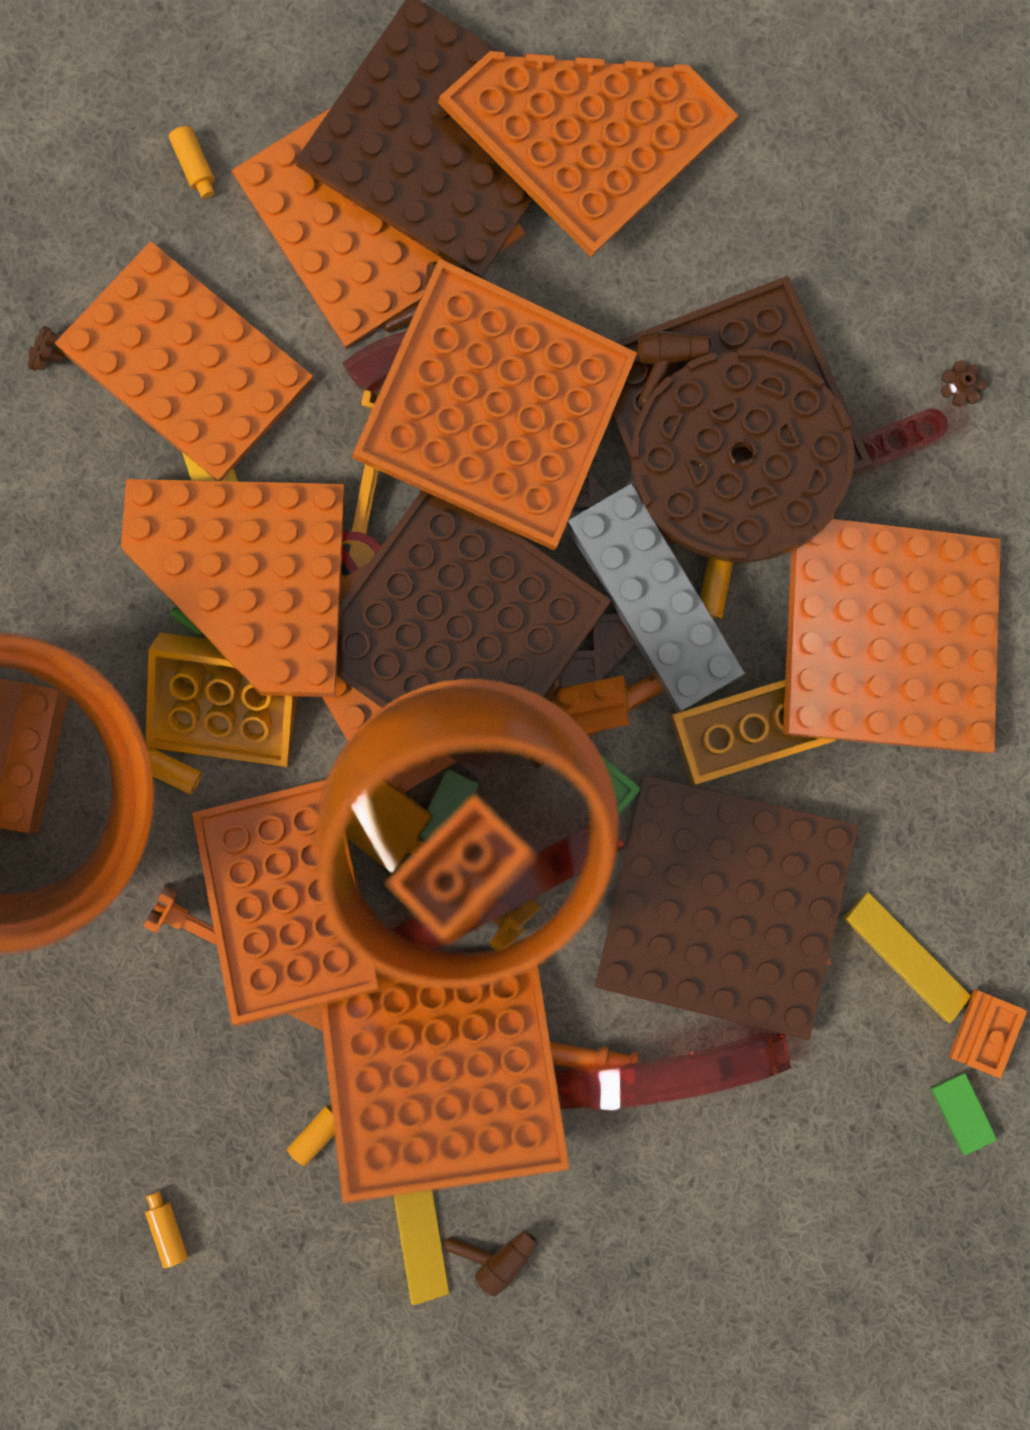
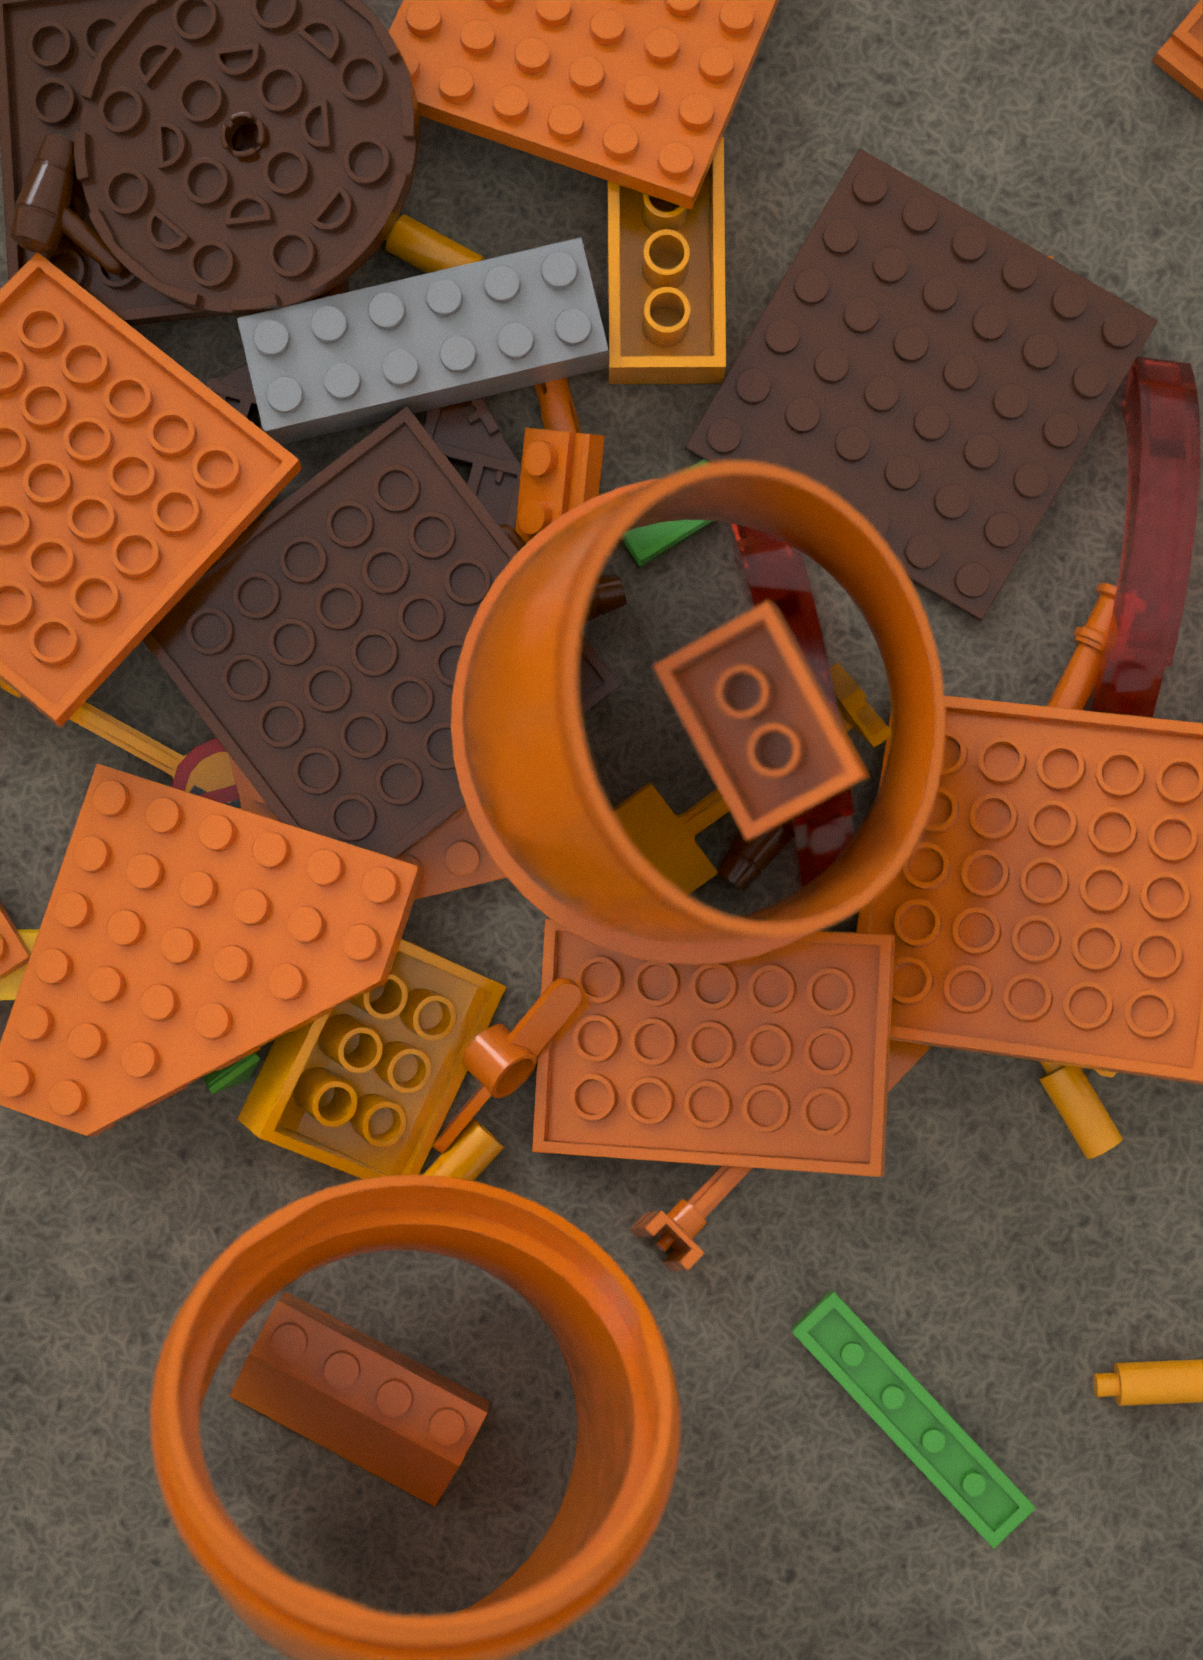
camera: 80 degrees left, 0 degrees up
(100, 1088) = (912, 1418): none -> bright green plate
(242, 780) = (507, 1058): none -> orange piece
(449, 798) = (644, 755): bright green tile -> none
(907, 957) = (1076, 144): yellow slope -> none

